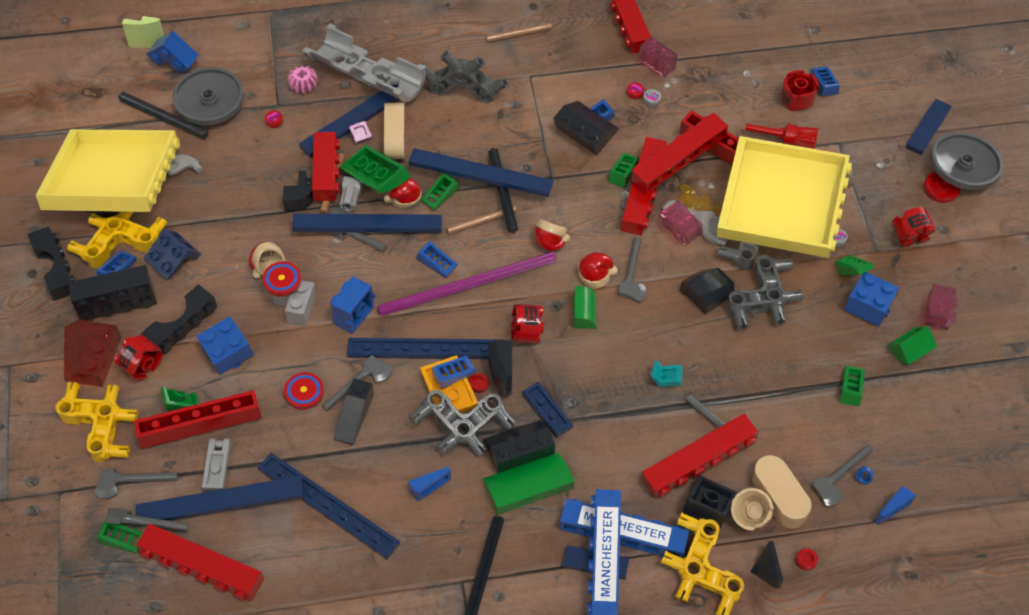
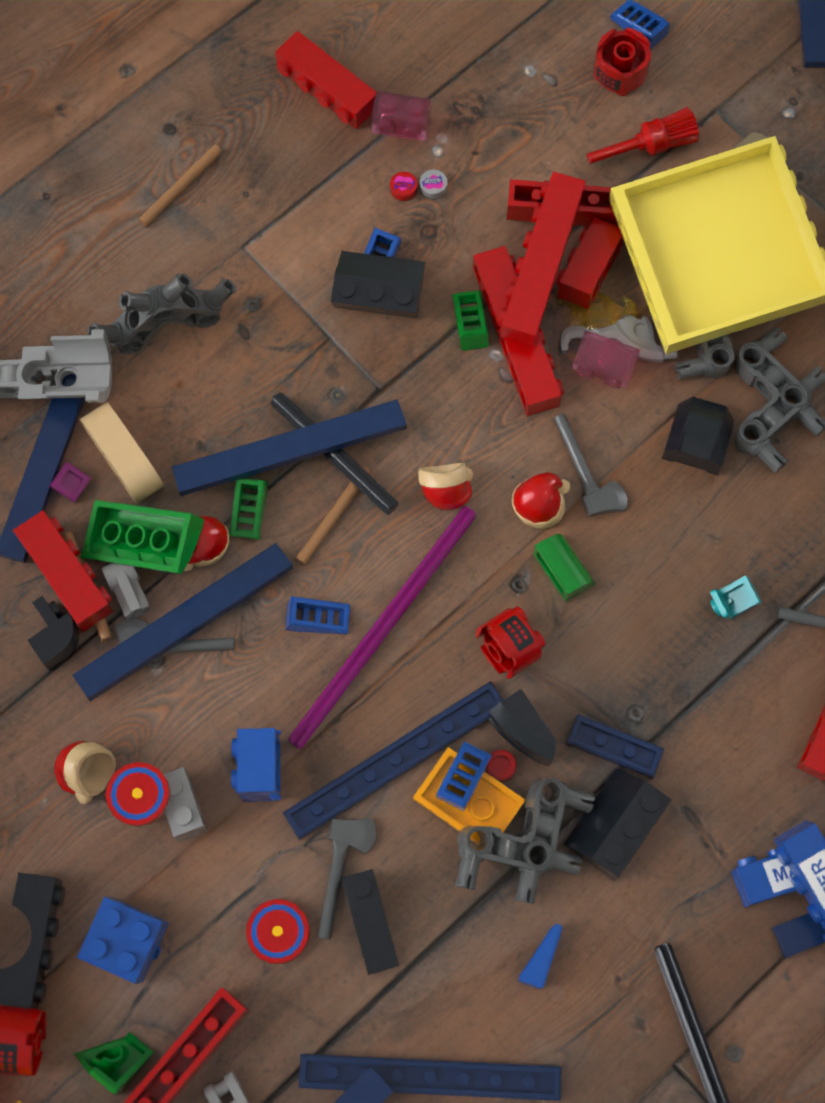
camera: 30 degrees left, 15 degrees up
(529, 483) = (664, 869): green slope -> none
(706, 175) = (589, 263): none -> red brick

